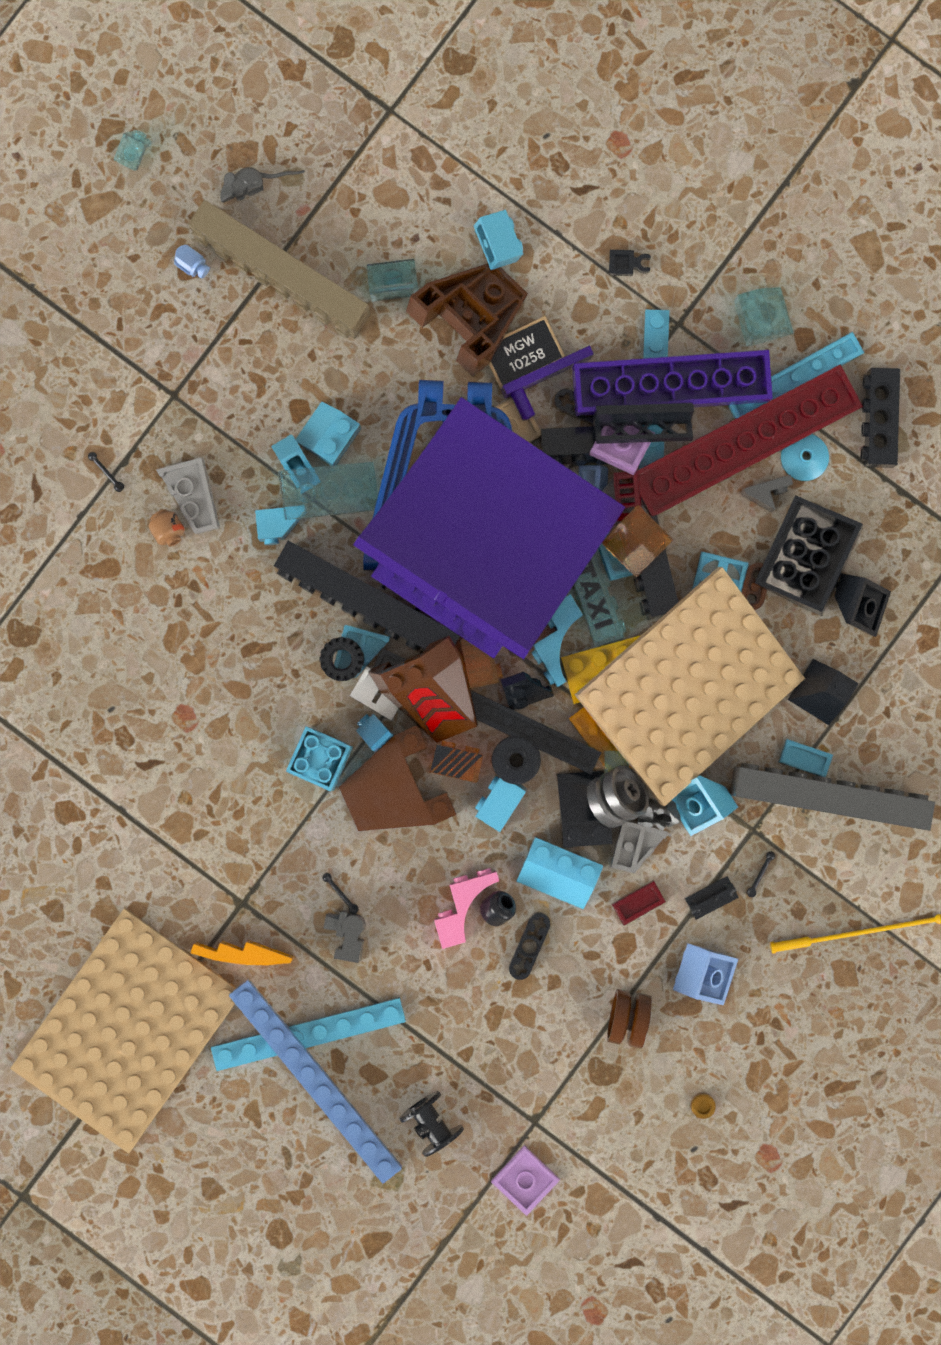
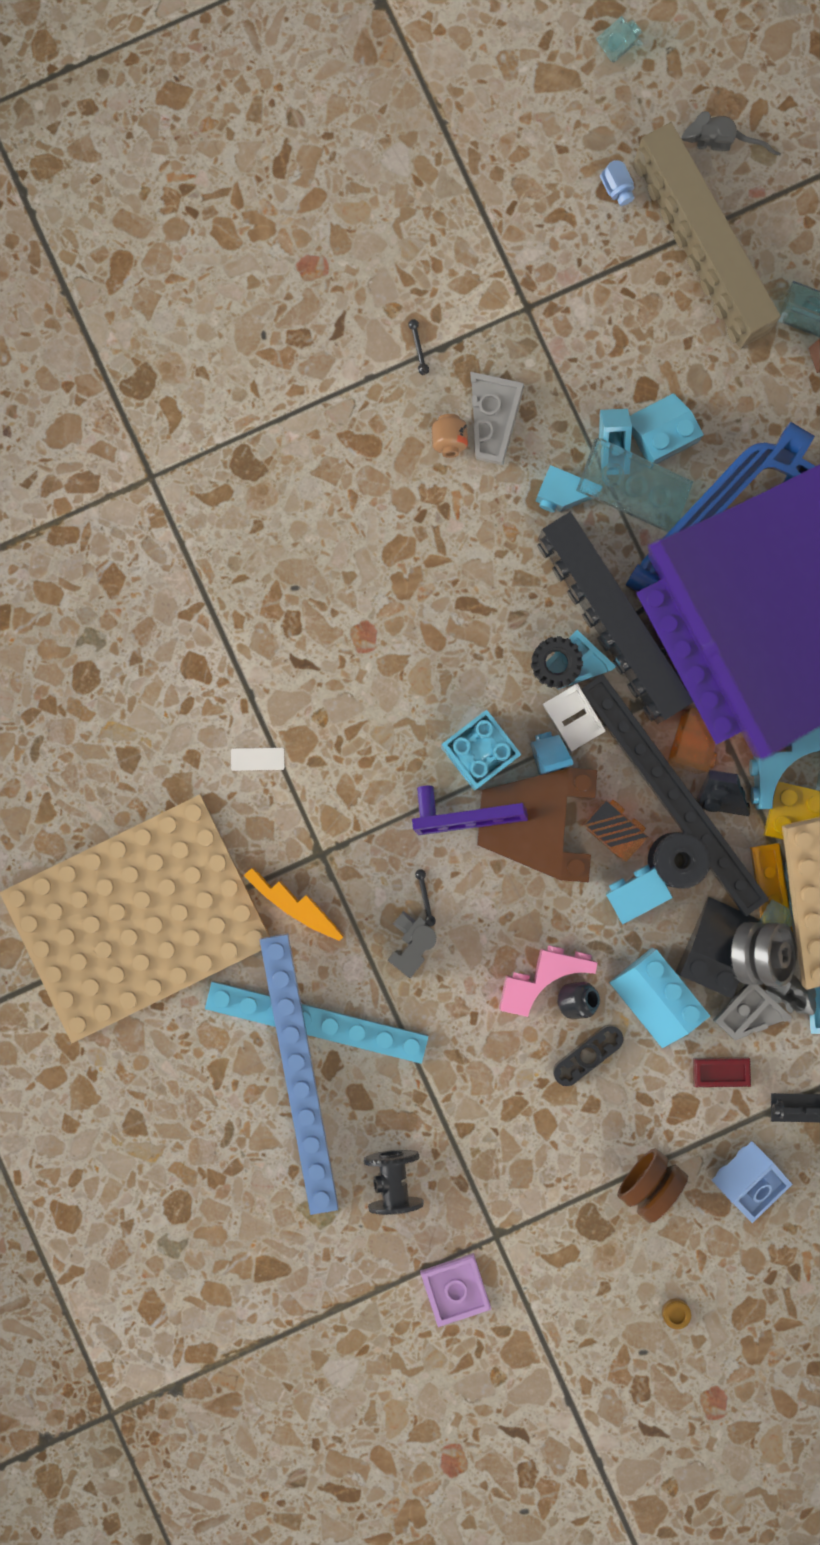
camera: 30 degrees right, 0 degrees up
(153, 857) = (257, 759): none -> white sticker
(314, 833) = (431, 823): none -> dark purple piece
(430, 690) = (631, 742): reddish brown wedge -> none

